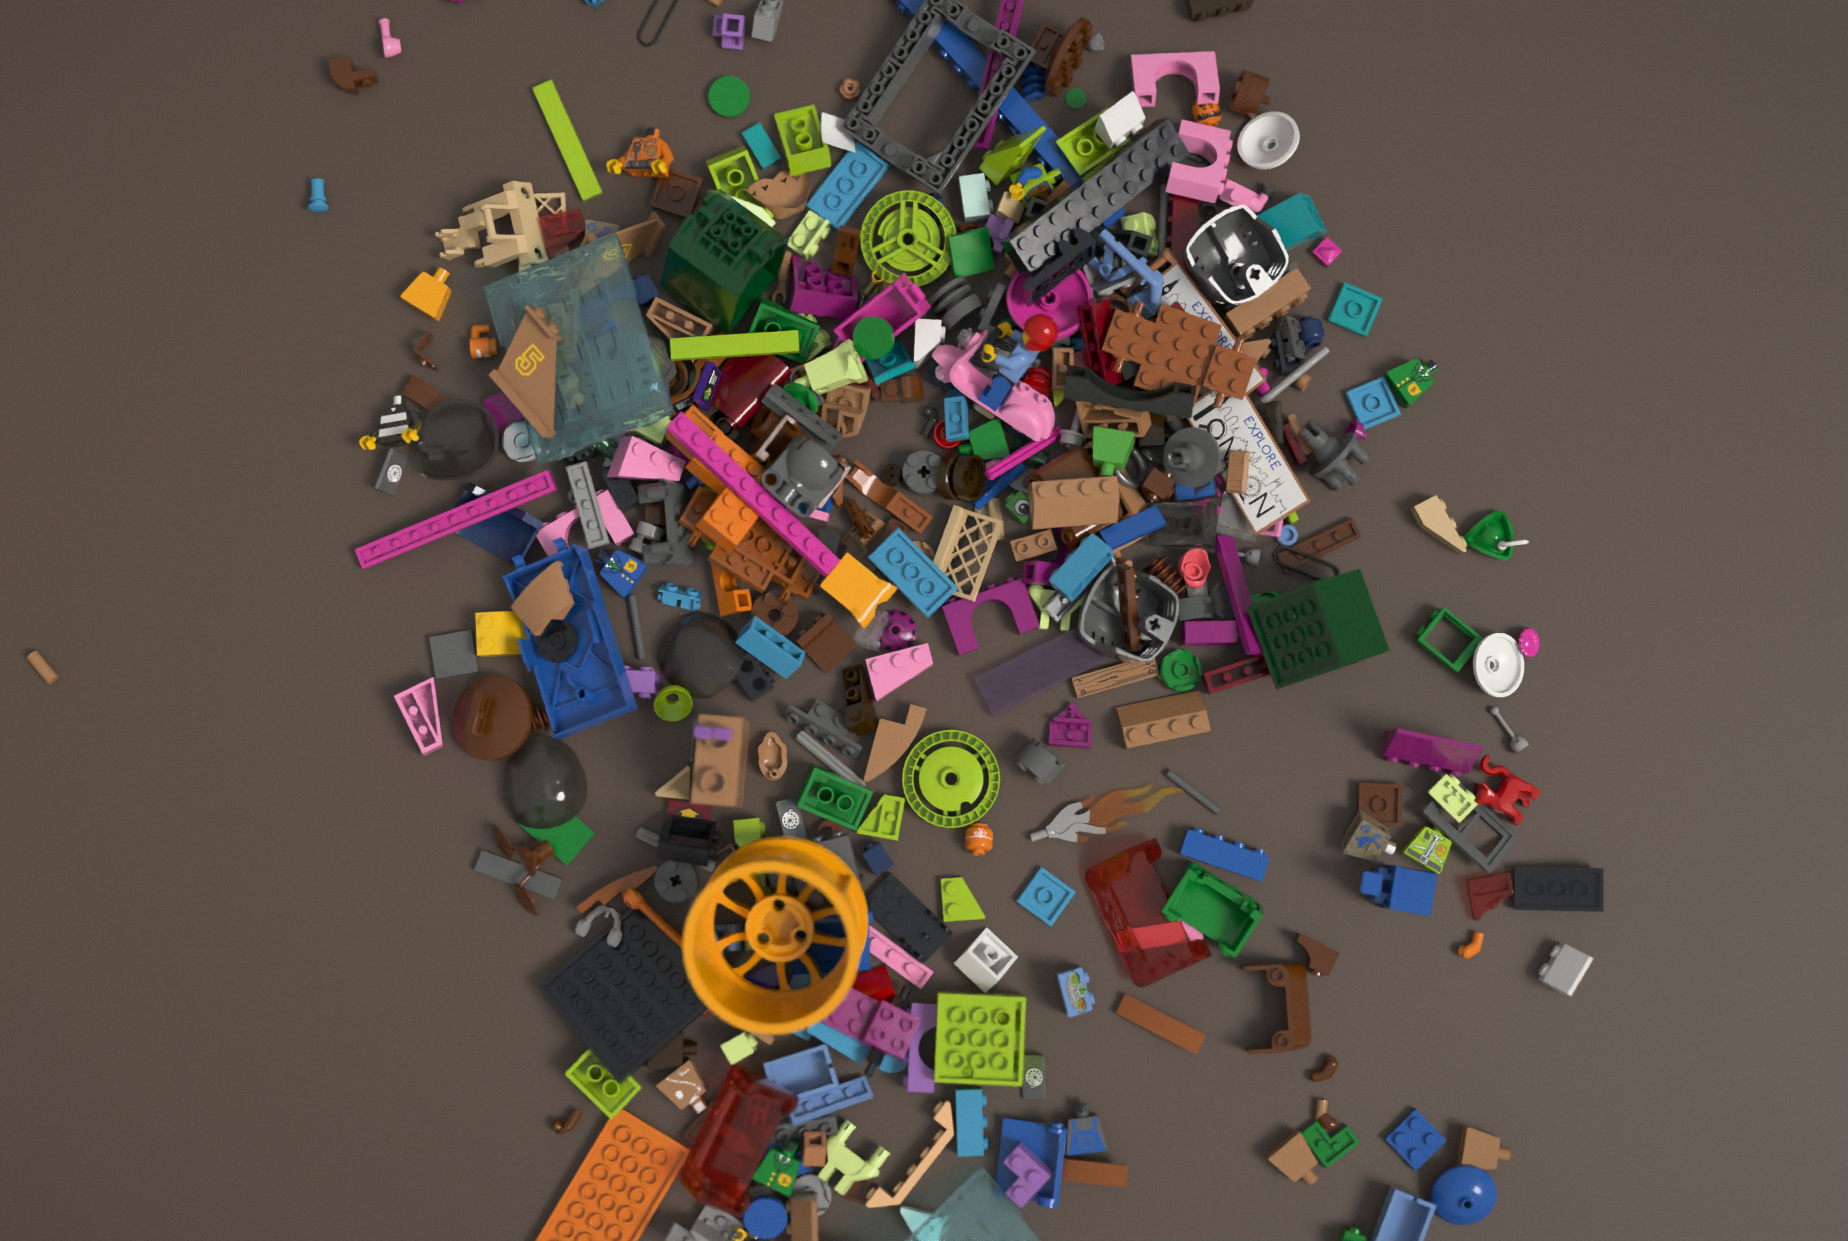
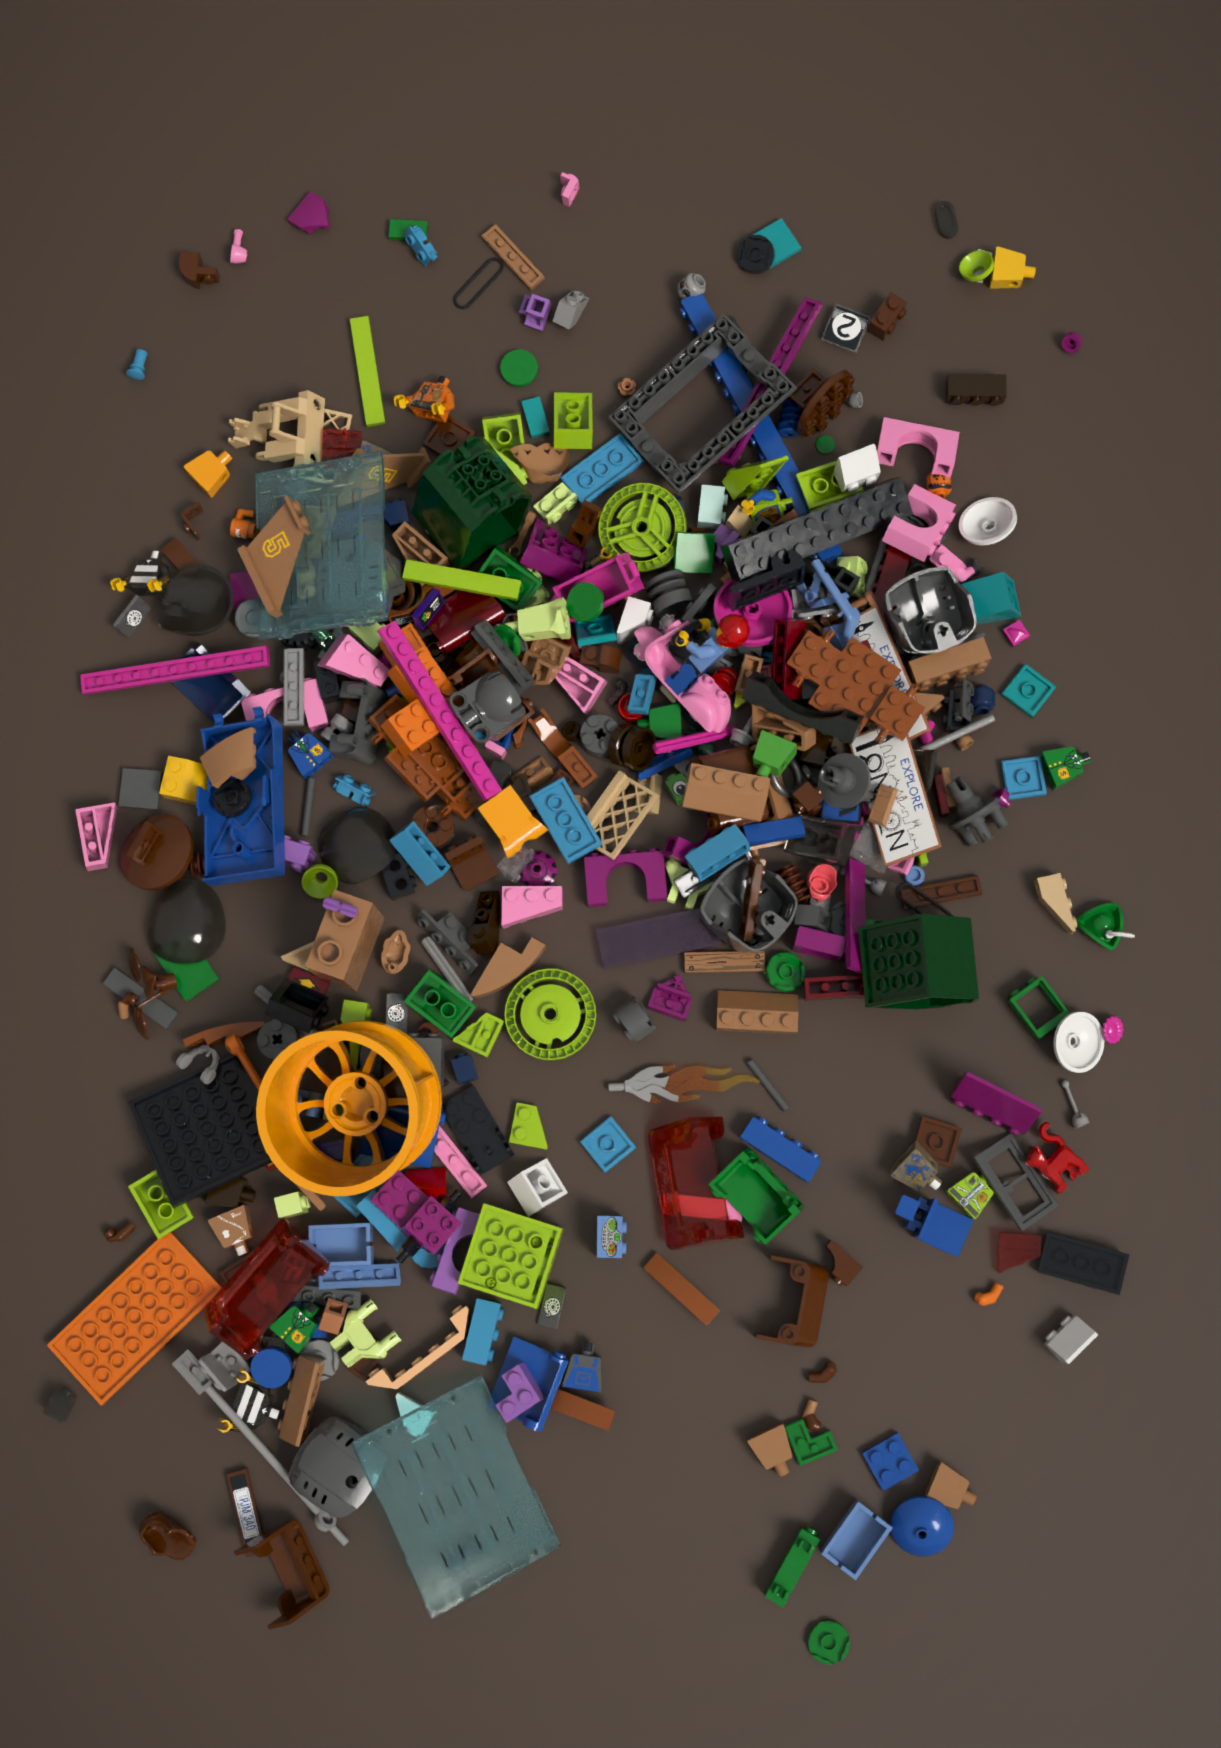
camera: 25 degrees right, 5 degrees down
(503, 885) = (128, 998): none -> arm
(729, 597) = (397, 801): orange arch -> none
(834, 135) = (600, 420): white sticker -> none
(859, 518) = (531, 761): reddish brown pin -> none
(889, 424) = (580, 684): none -> bright pink wedge
(978, 839) = (560, 1075): orange head -> none
(1033, 546) = (681, 825): medium nougat brick -> none
(1249, 94) = (981, 476): reddish brown piece -> none
(1452, 797) = (1005, 1152): yellowish green bracket -> none

